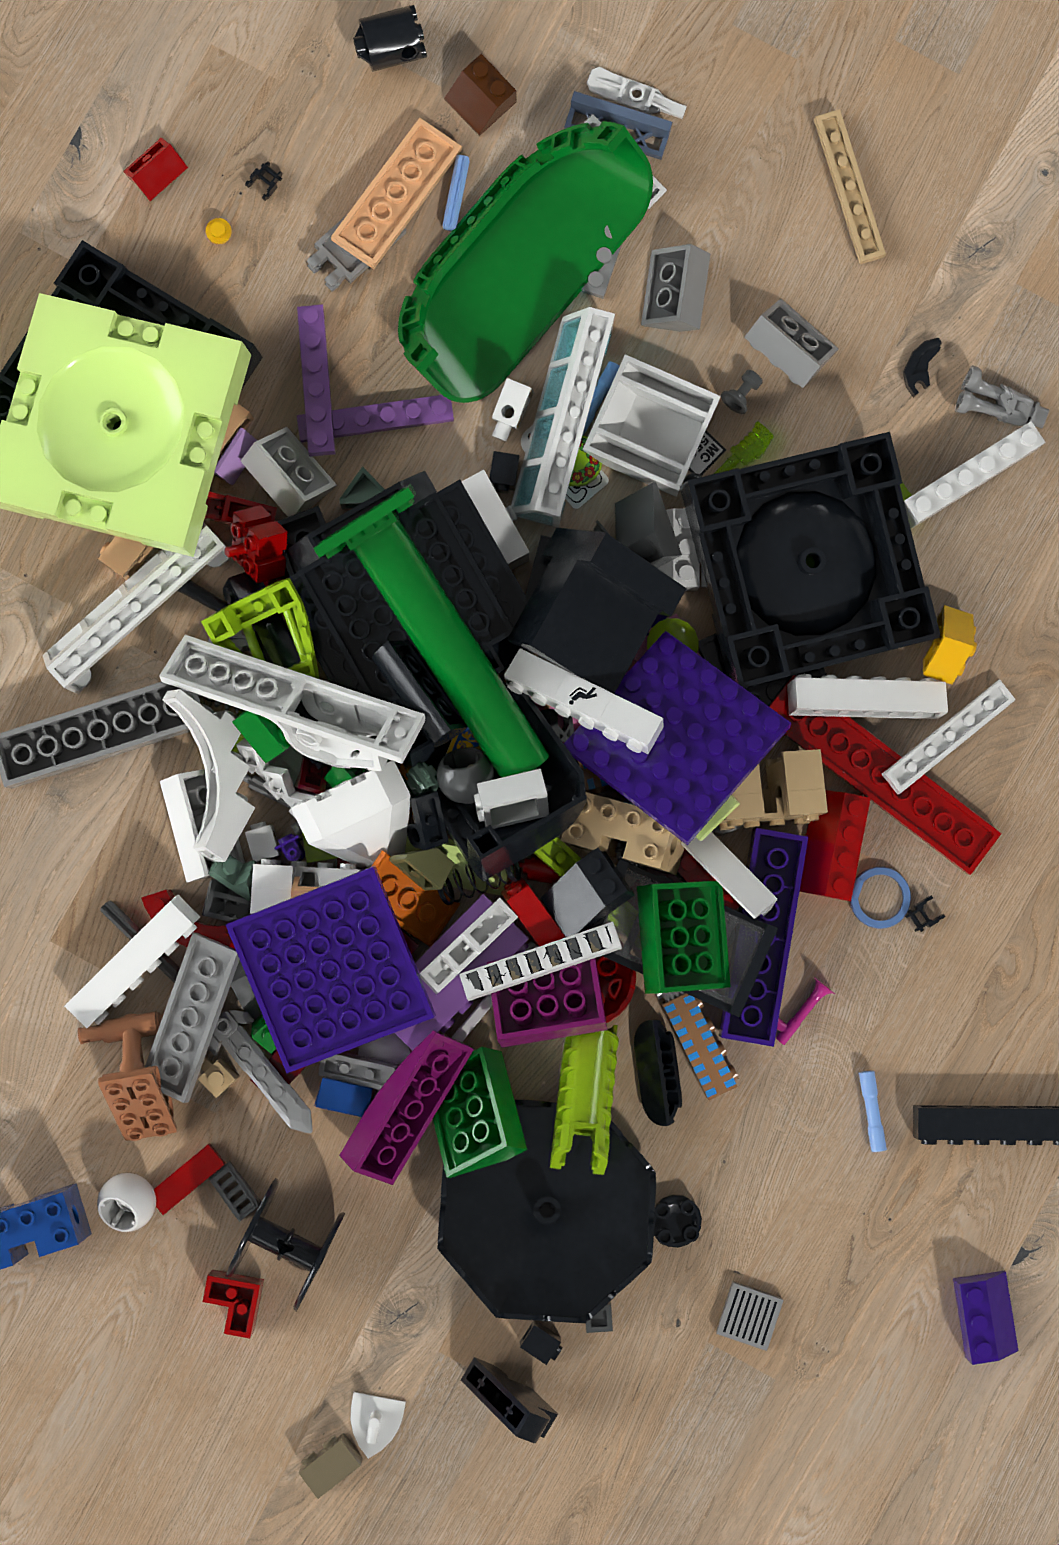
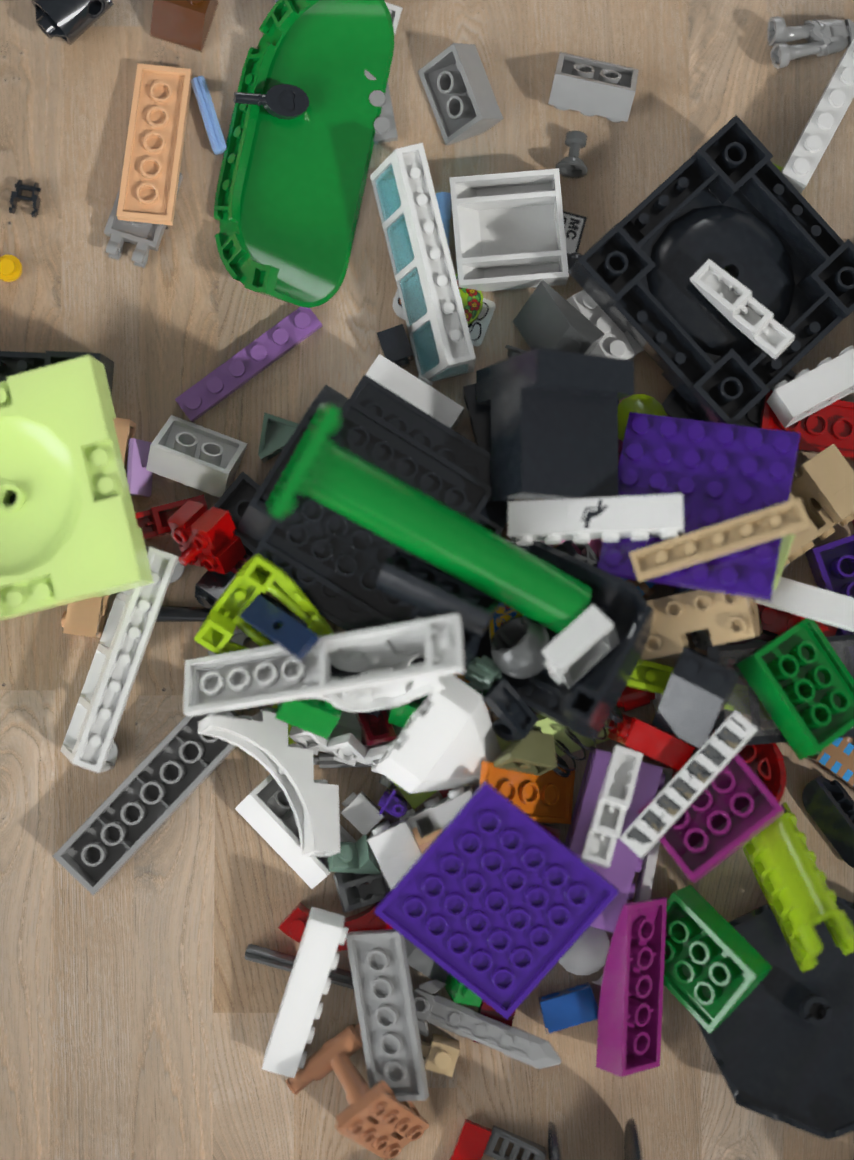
camera: 25 degrees left, 0 degrees up
(275, 648) = (279, 627): none -> dark blue tile
(316, 380) = (175, 357): medium lavender plate -> none
(357, 1069) = (571, 975): light grey plate -> none
(513, 396) = (370, 273): white torso -> none
(520, 214) = (280, 101): none -> black piece
(671, 772) = (719, 539): none -> tan plate
(748, 449) = (607, 206): clear neon green piece -> none
(803, 595) = (741, 309): none -> white slope
(917, 366) = (718, 45): black piece -> none

